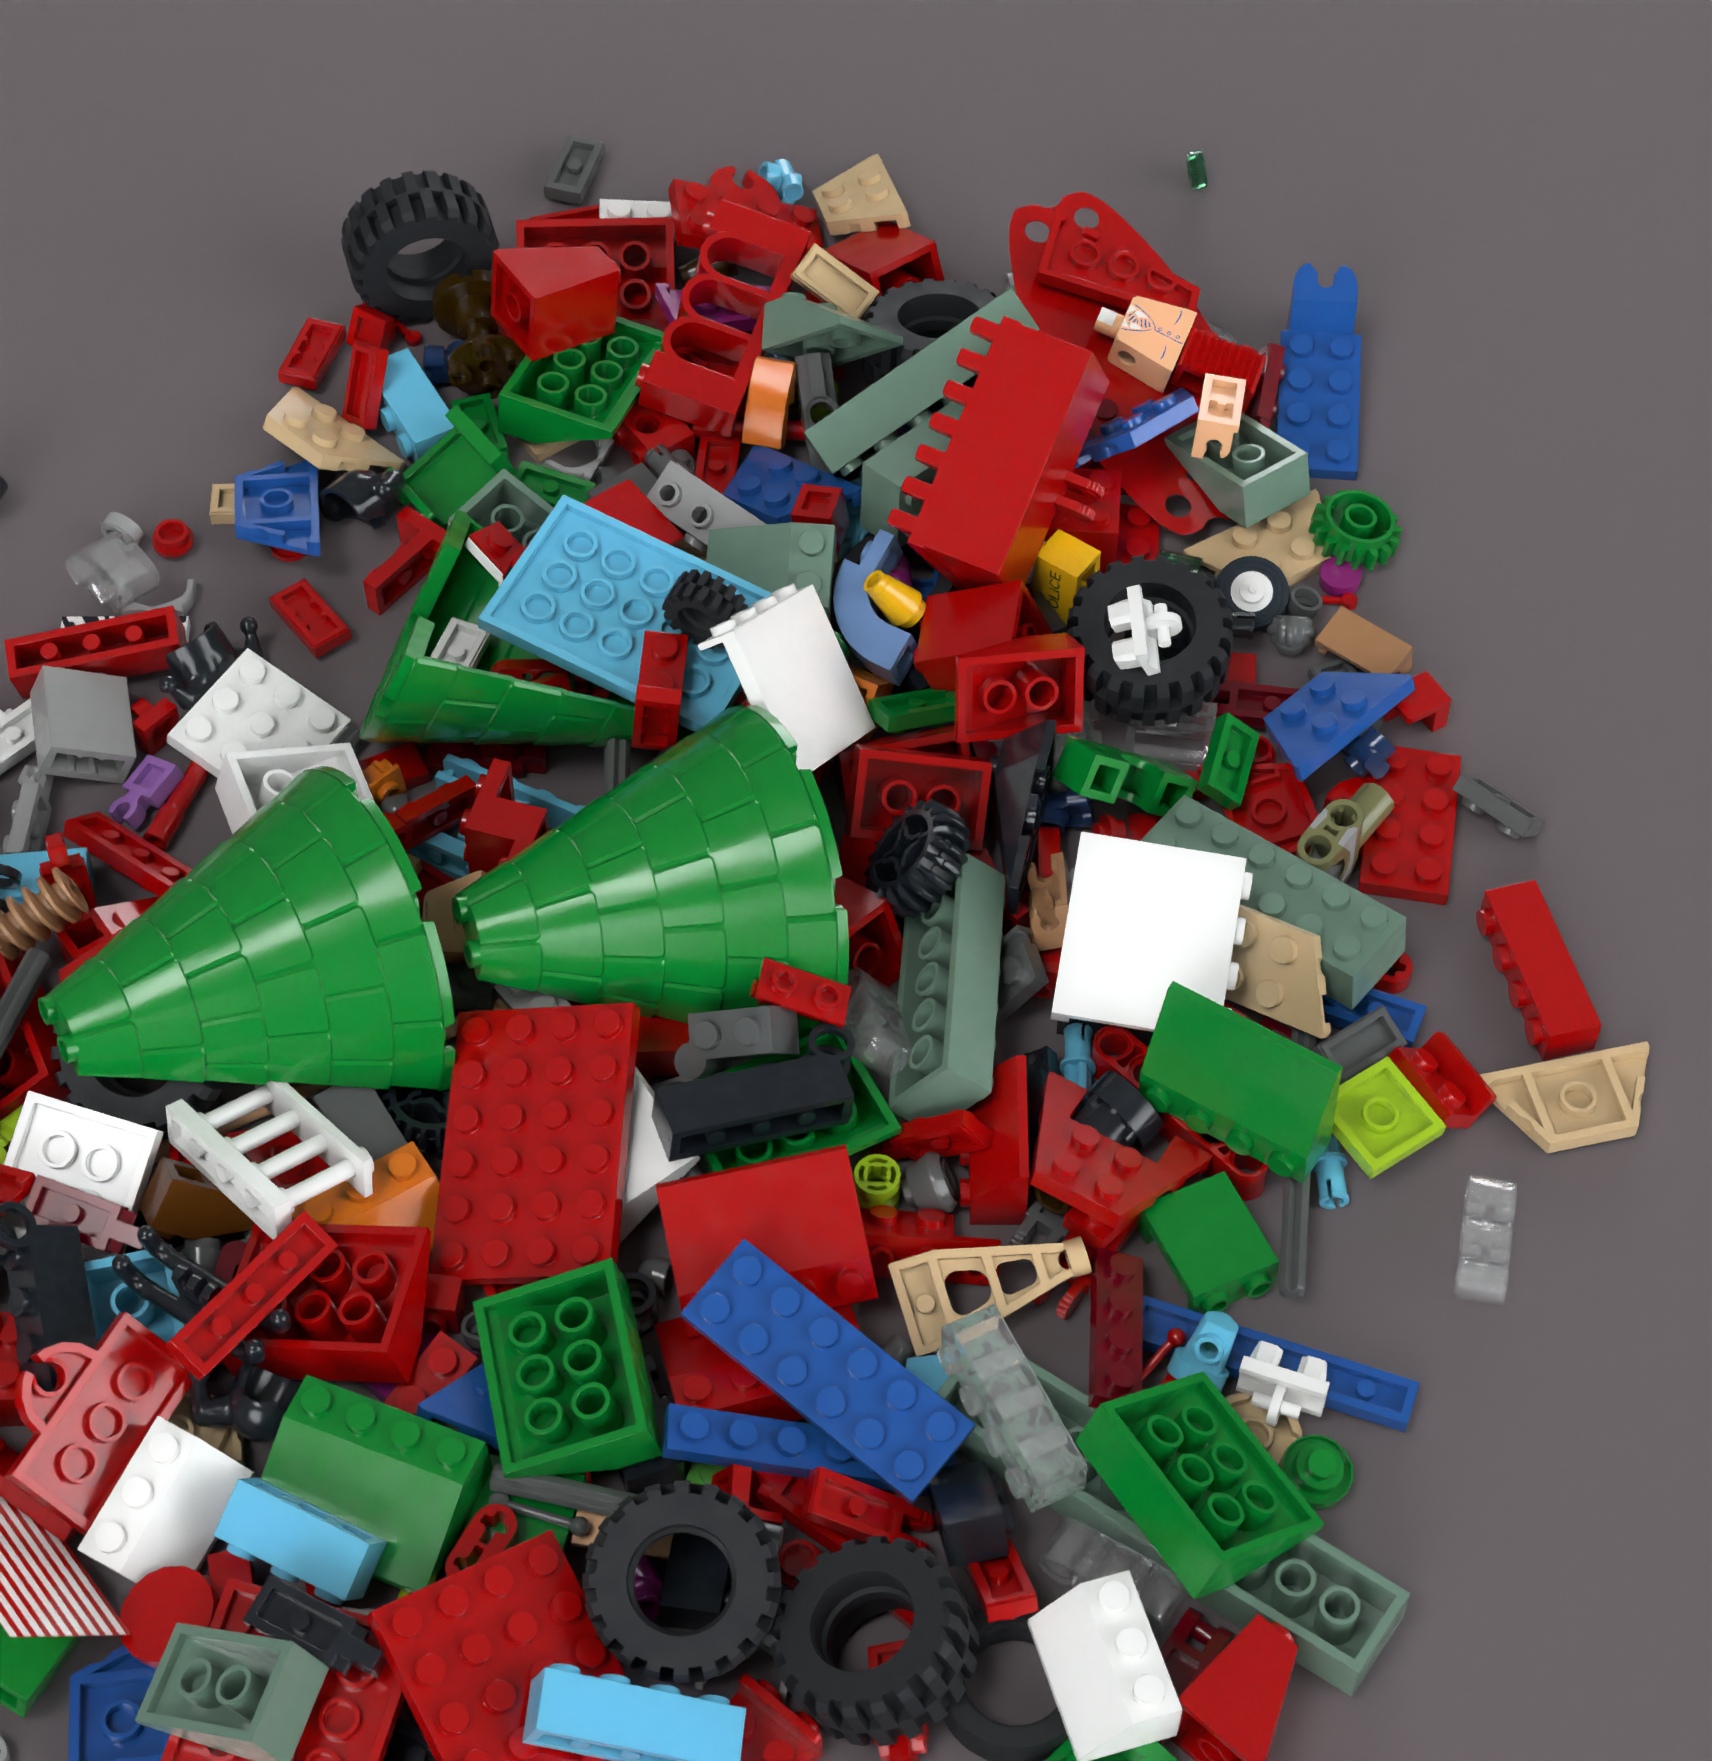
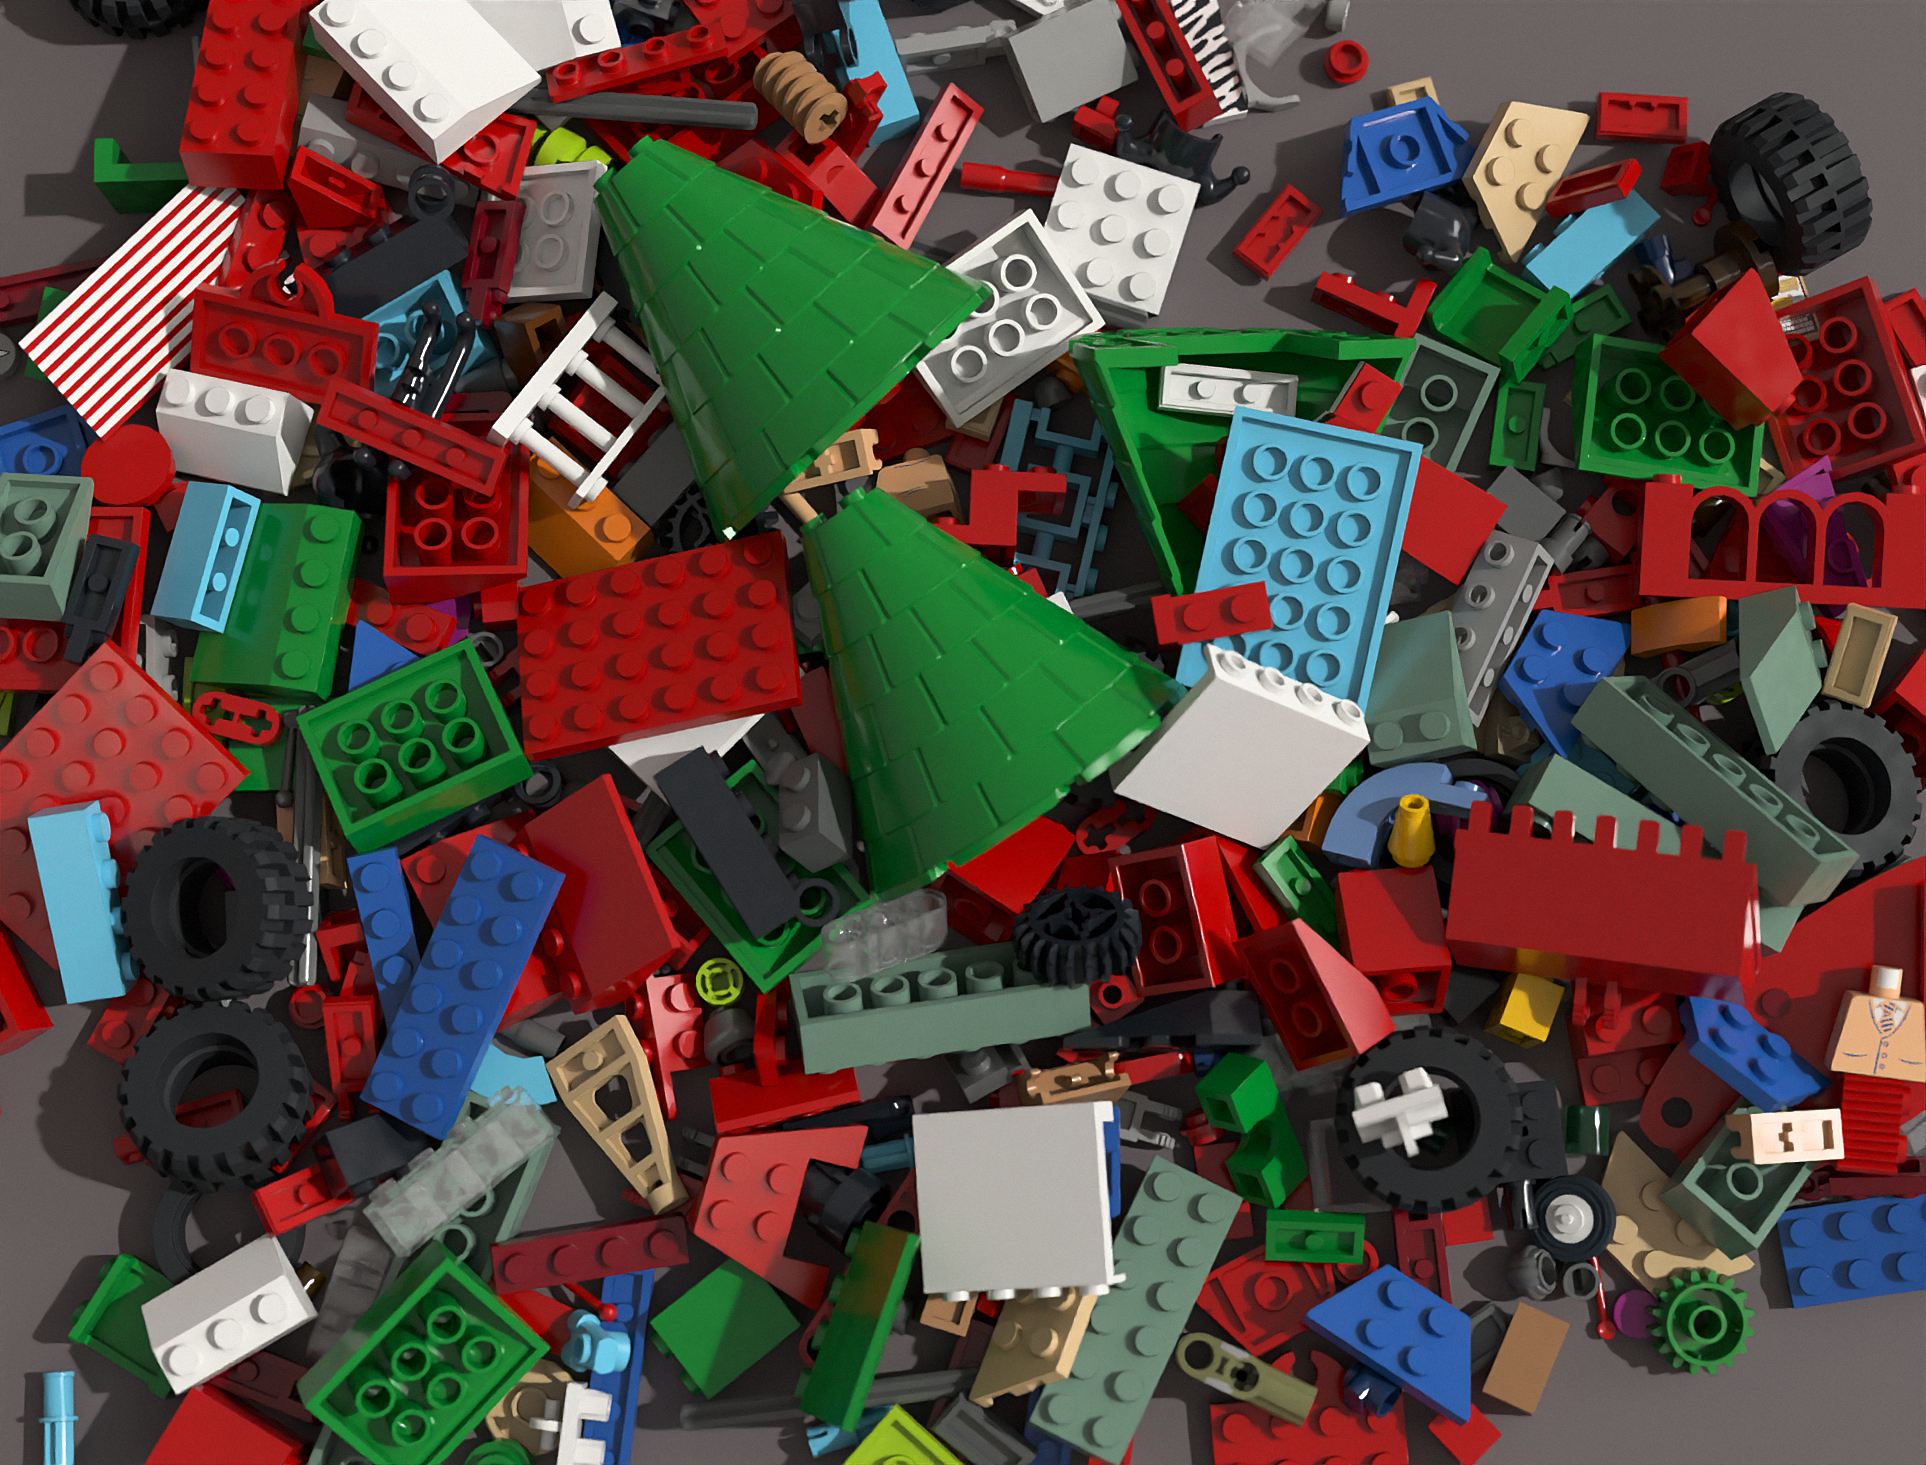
camera: 75 degrees right, 25 degrees up
(147, 786) = (1022, 148): medium lavender plate -> none
(432, 813) = (1015, 421): red hinge -> none
(701, 603) = (1297, 635): black tyre -> none
(801, 992) = (857, 859): red hinge -> none
(822, 506) = (1516, 724): red panel -> none

